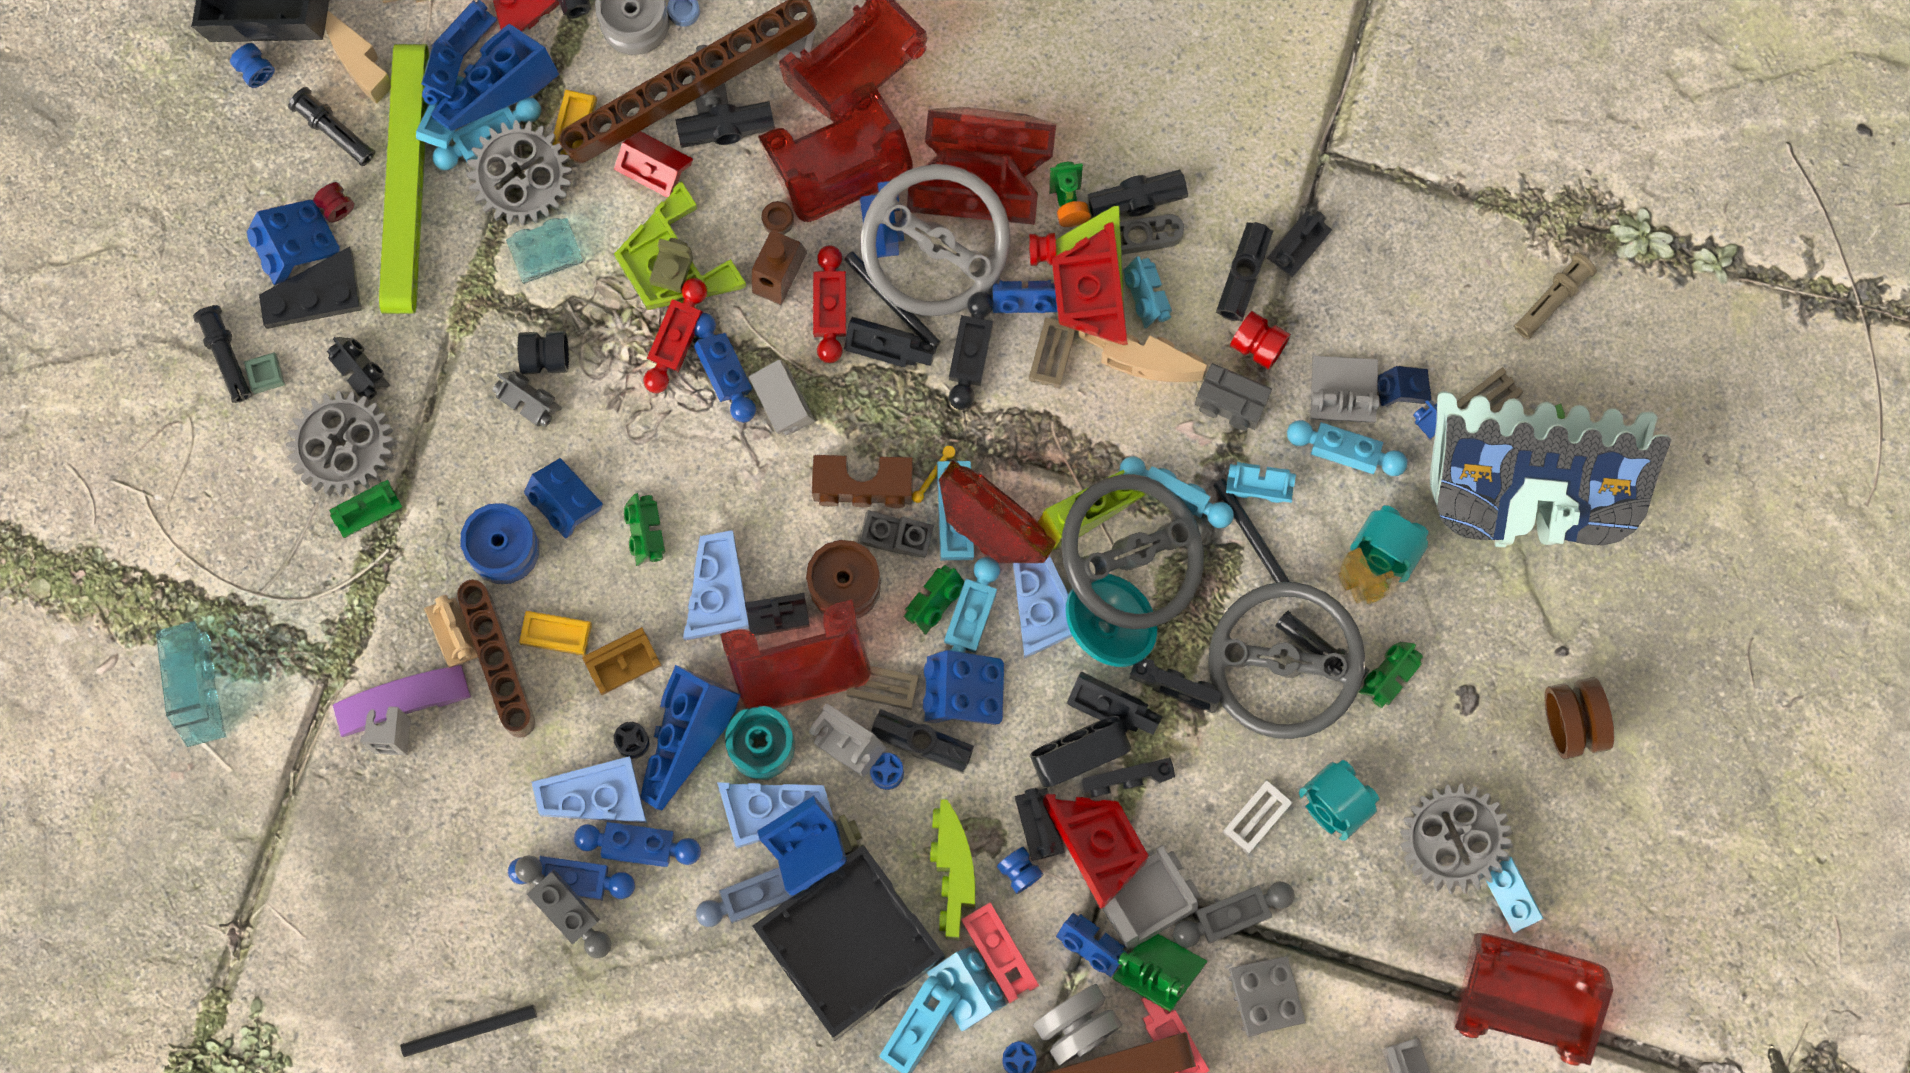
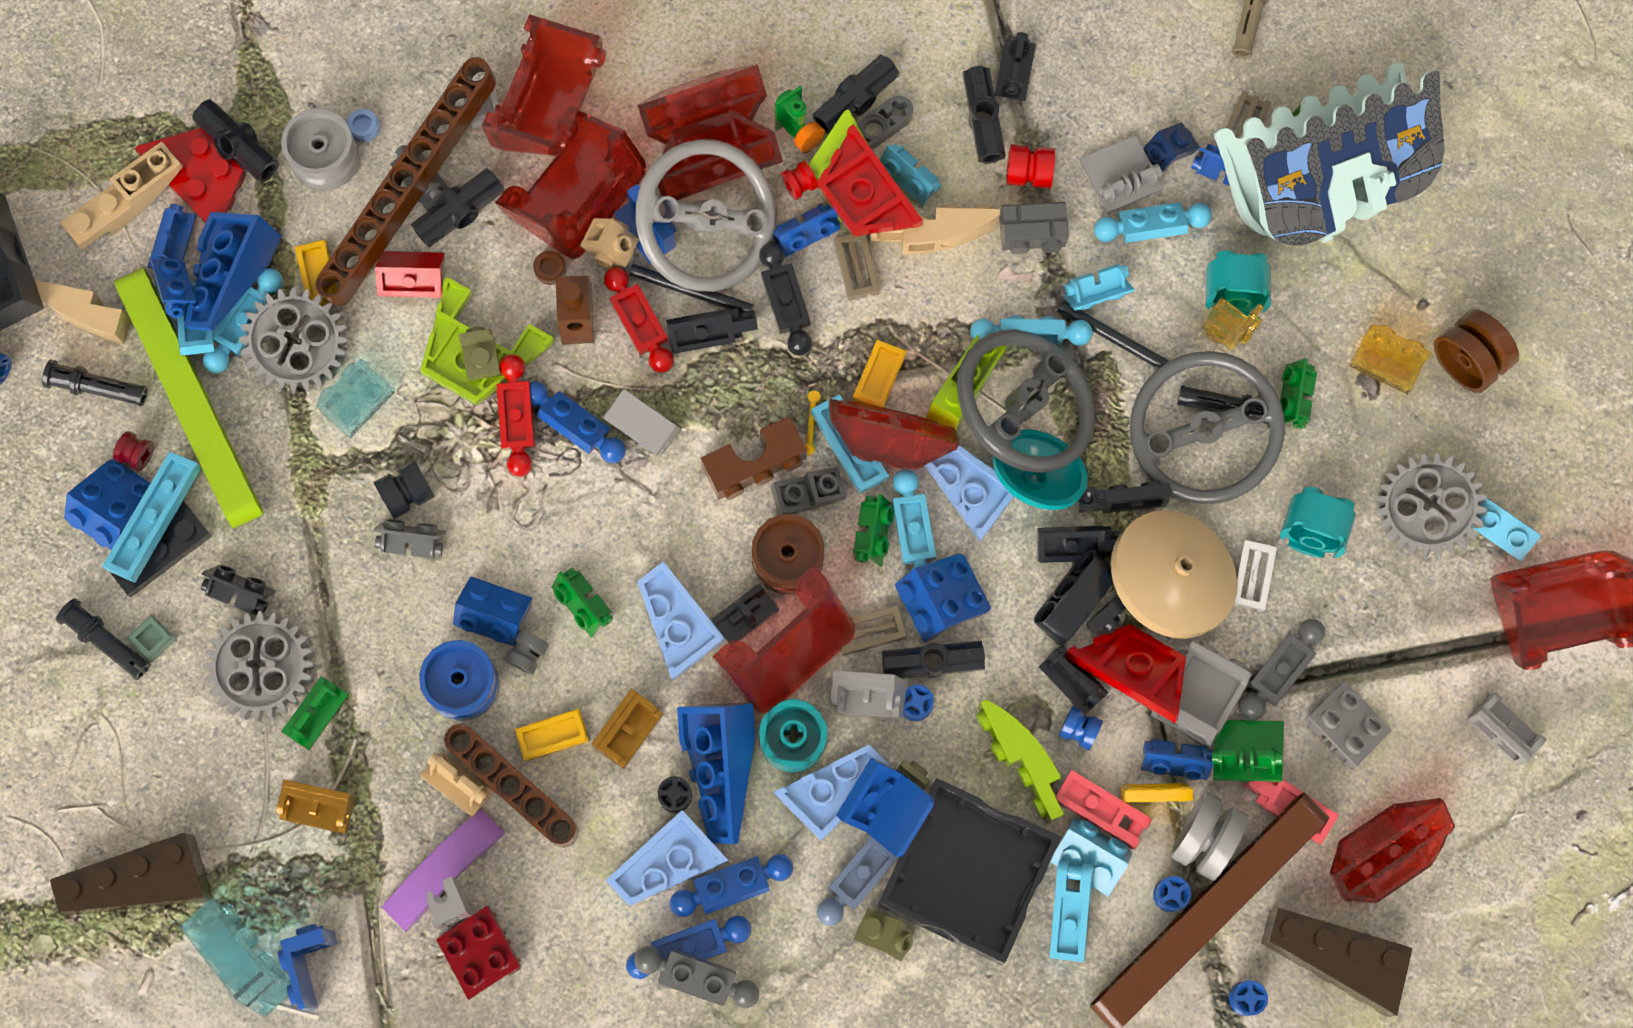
camera: 35 degrees left, 0 degrees up
(149, 574) = (142, 878): none -> dark brown wedge
(234, 710) = (292, 958): none -> blue bracket
(317, 267) = (152, 517): none -> medium azure plate
(322, 589) = (315, 806): none -> pearl gold hinge
(392, 787) = (479, 952): none -> dark red hinge
(571, 549) = (526, 652): none -> dark grey wheel
(746, 959) = (885, 934): none -> olive bracket
(839, 222) = (610, 242): none -> tan brick
(1018, 462) = (879, 374): none -> yellow tile
(1055, 962) = (1156, 792): none -> yellow tile
(1155, 782) = (1174, 574): none -> tan dish
(1497, 684) = (1390, 358): none -> clear yellow bracket

